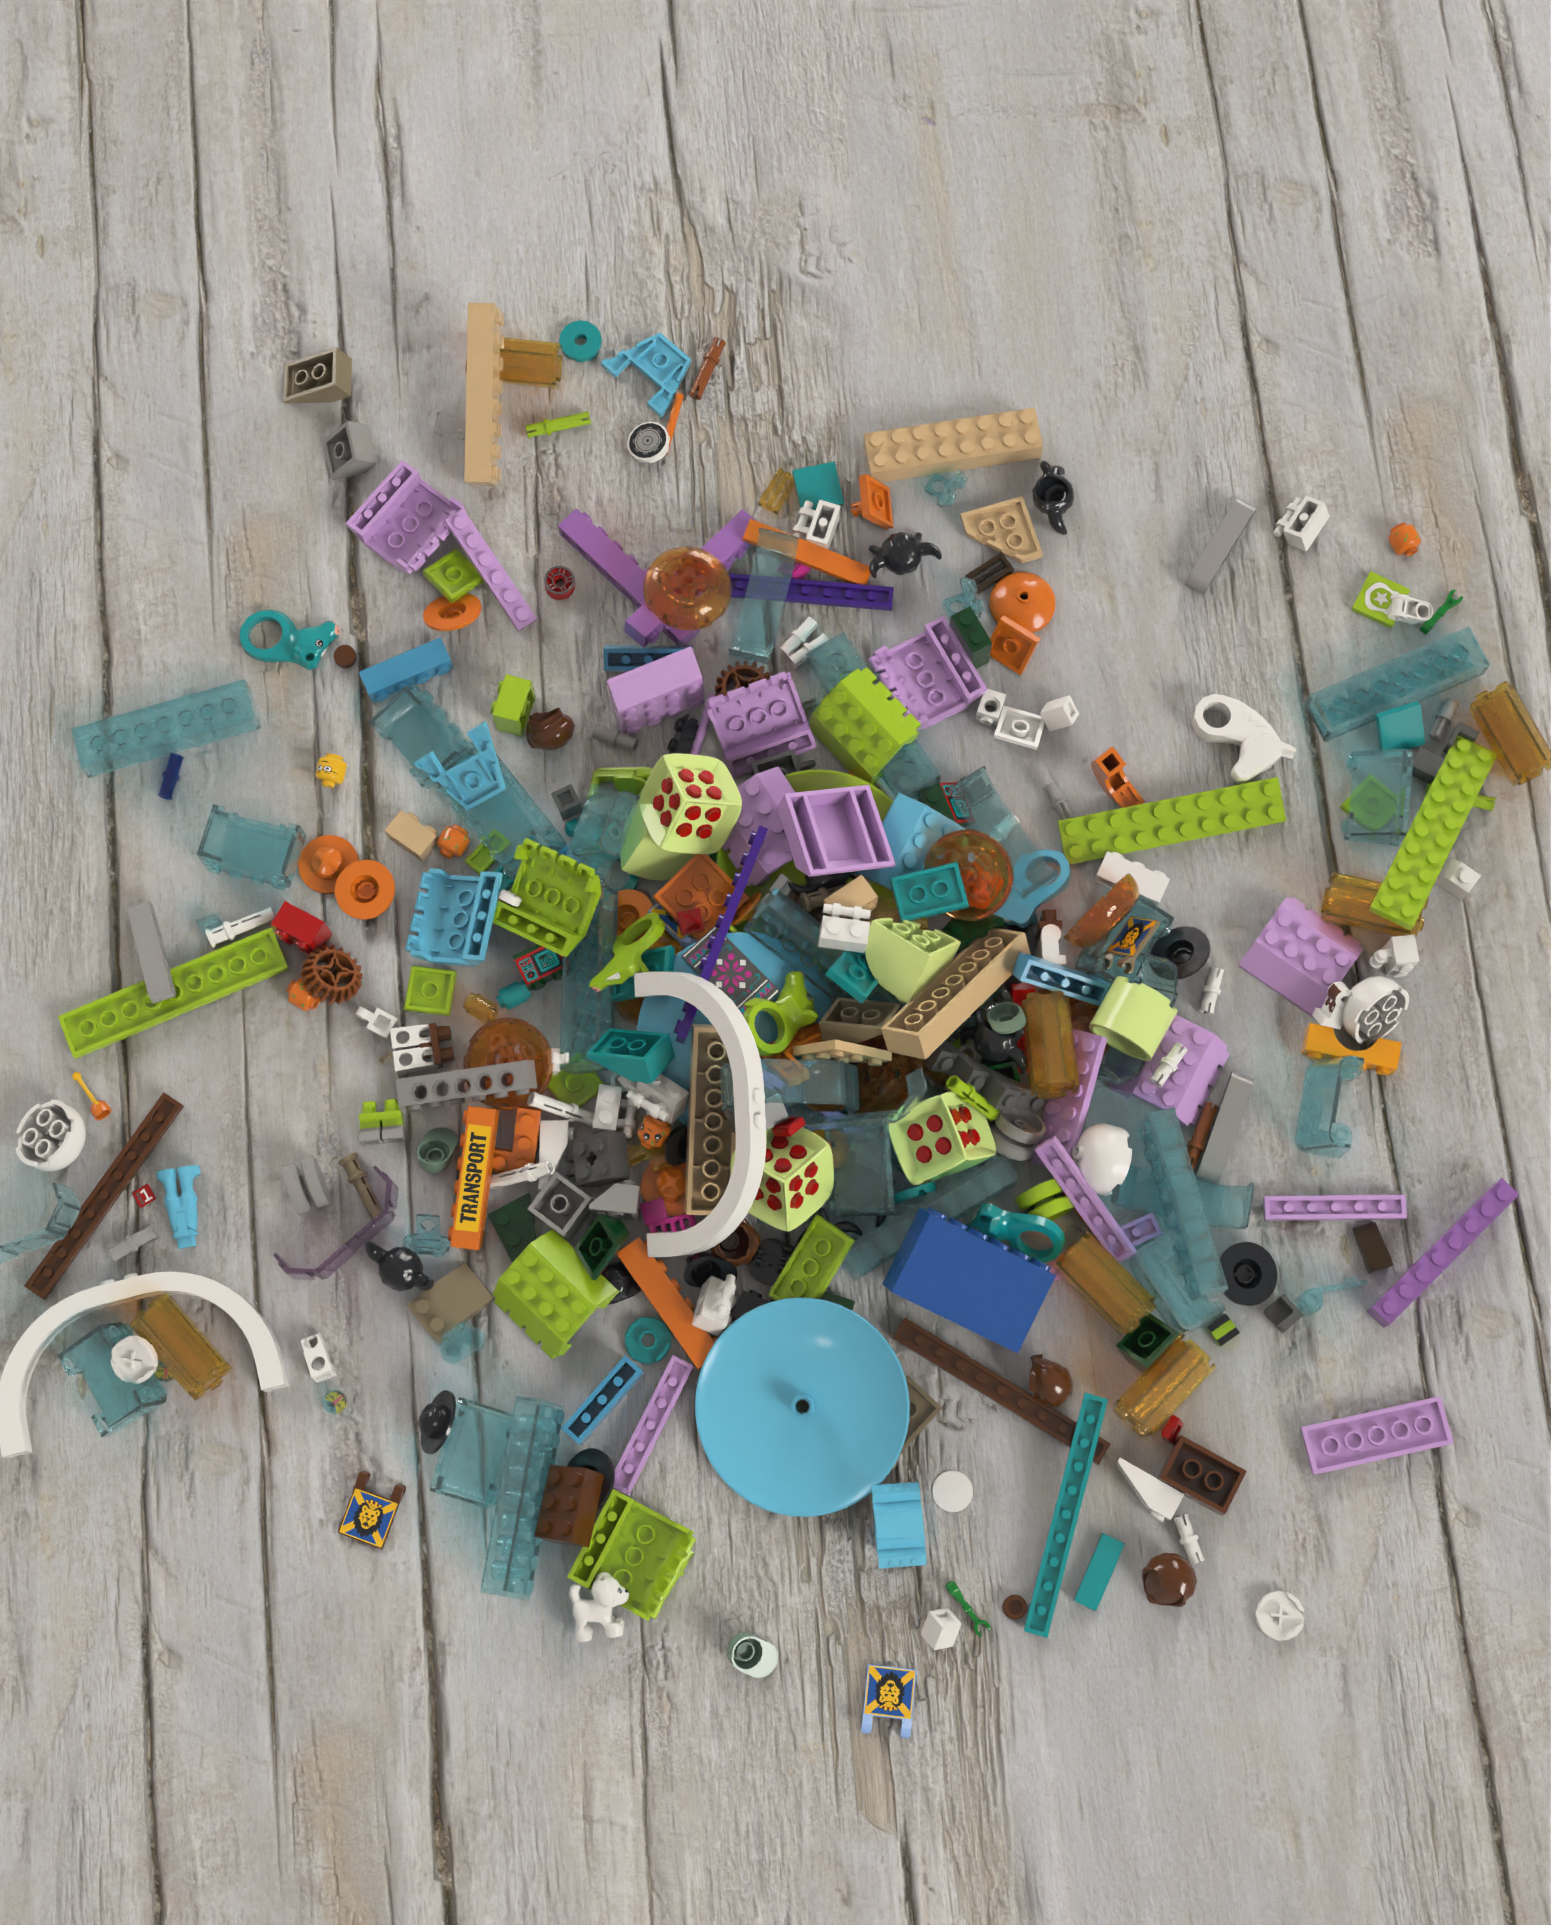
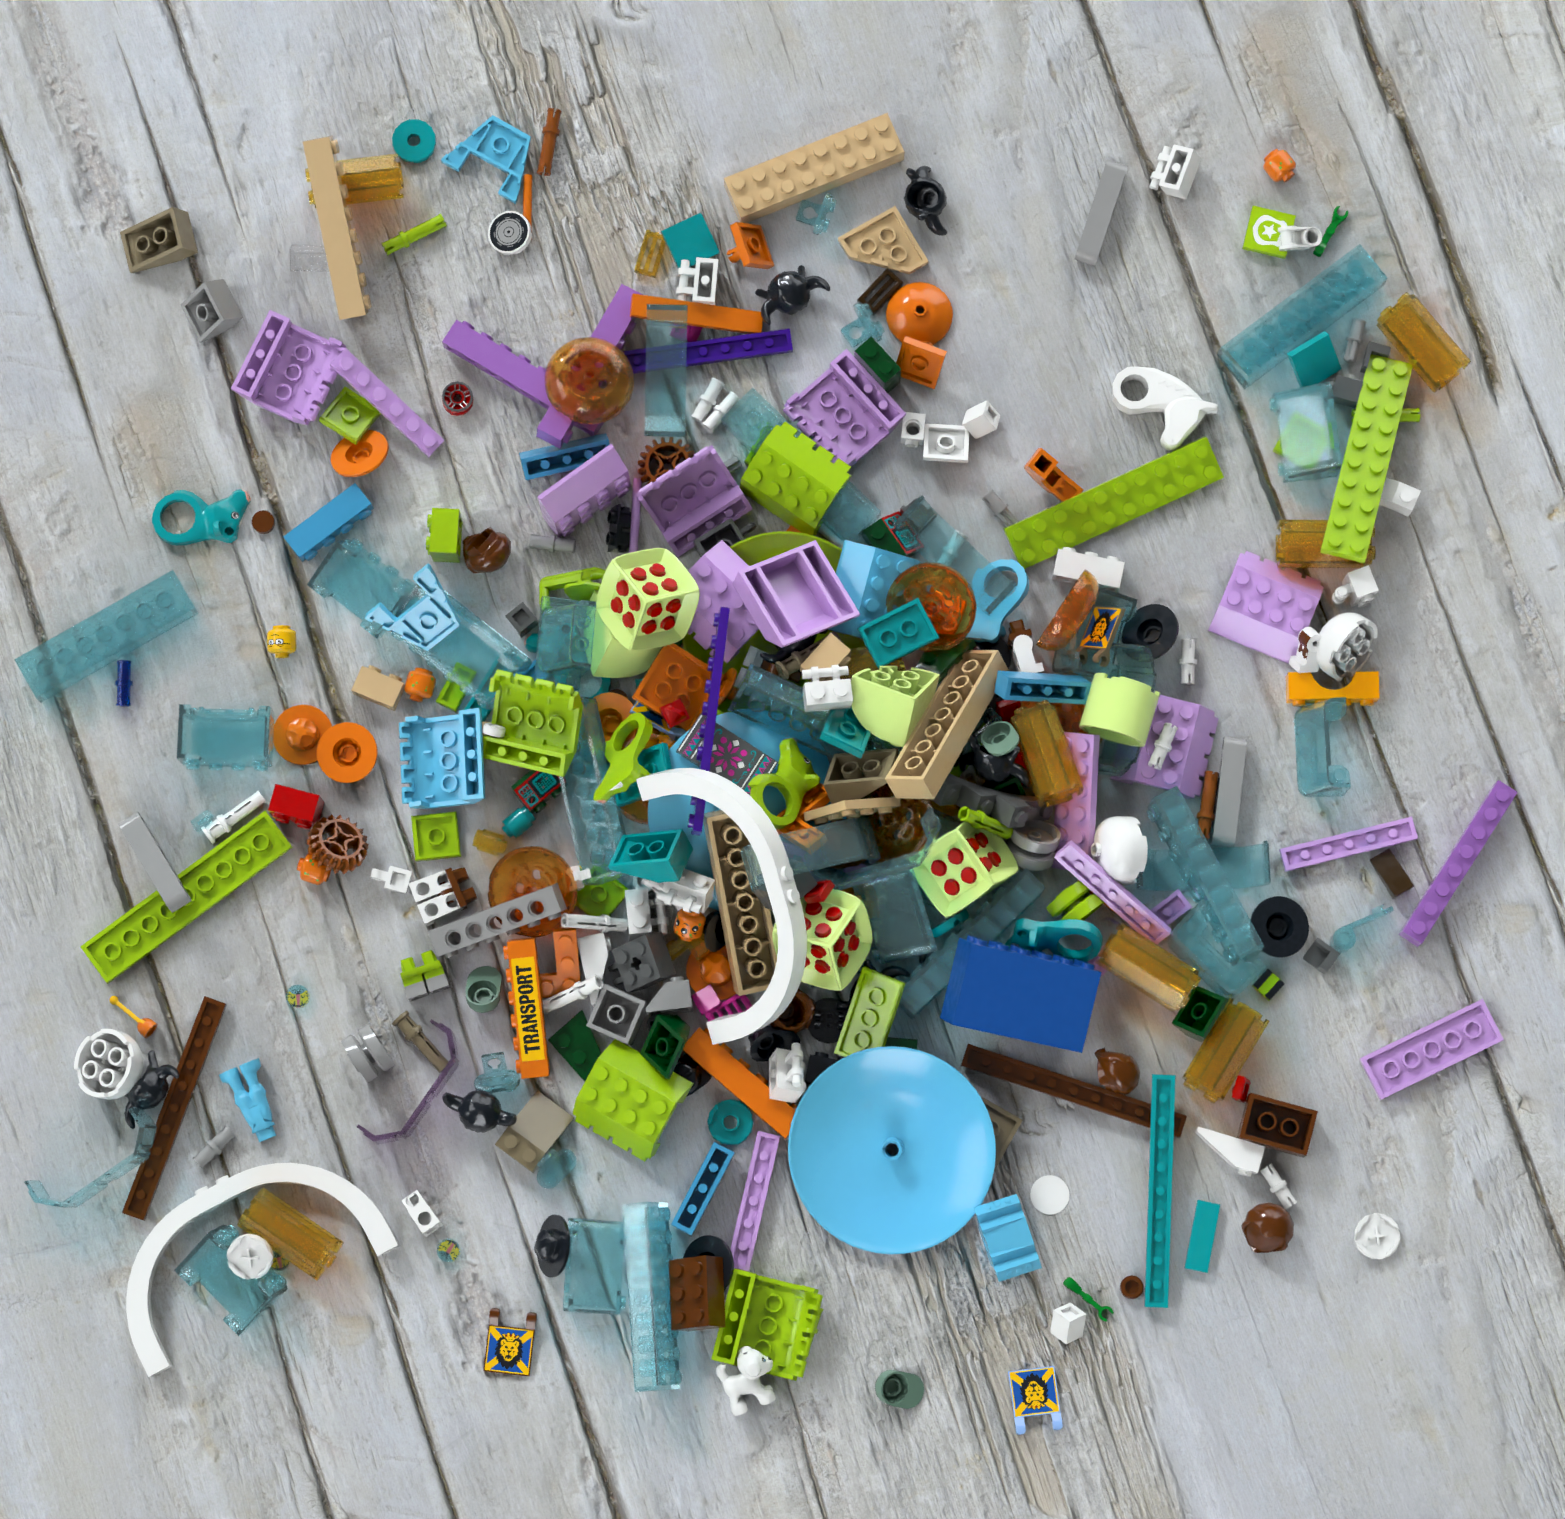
camera: 15 degrees left, 5 degrees up
(85, 1168) = (150, 1088): none -> black piece
(144, 1195) = (211, 1099): red sticker -> none
(255, 1114) = (297, 996): none -> clear light blue tile

